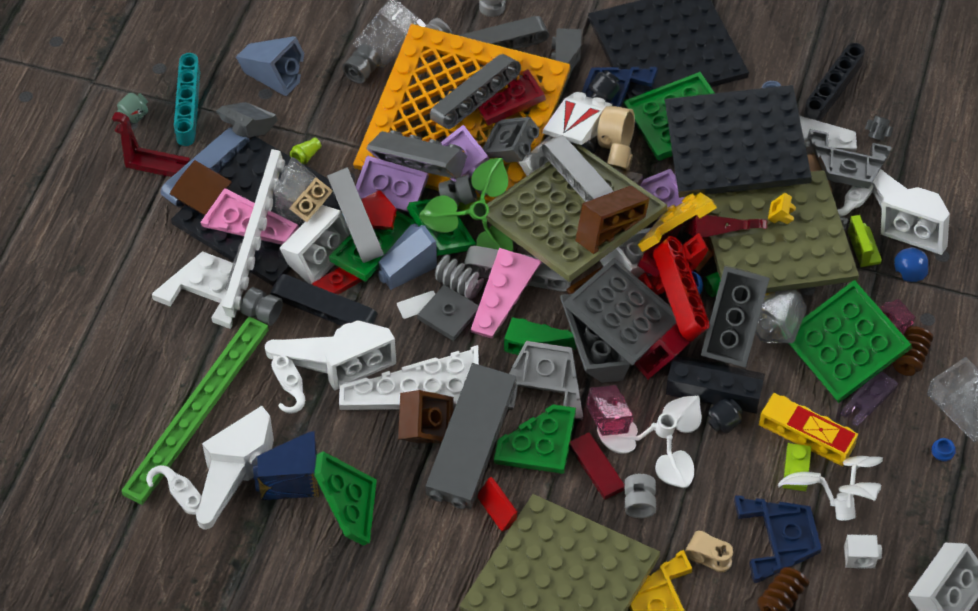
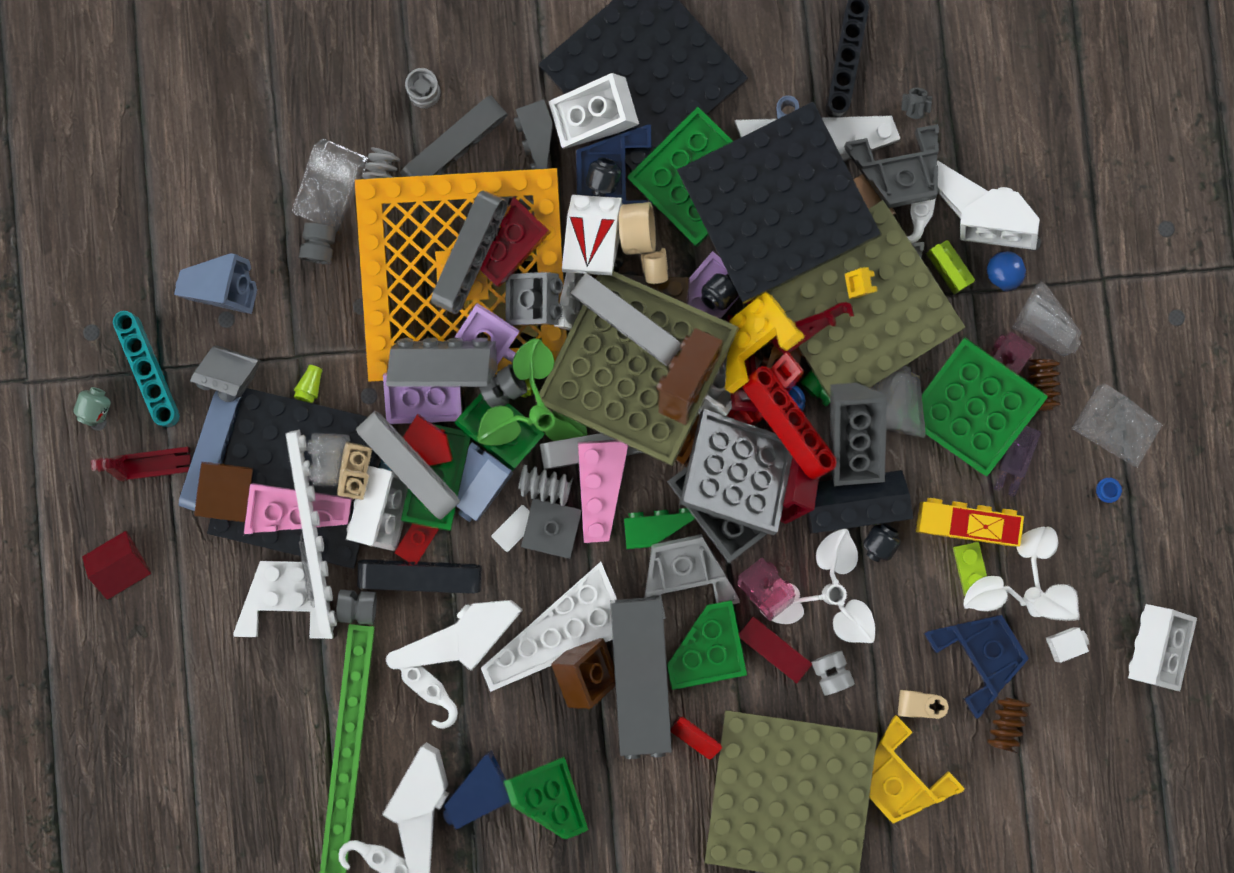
camera: 25 degrees left, 30 degrees up
(88, 219) = (115, 565): none -> dark red slope
(617, 46) = (594, 111): none -> white slope
(664, 189) = (718, 292): none -> black head
(932, 306) = (1048, 322): none -> clear slope

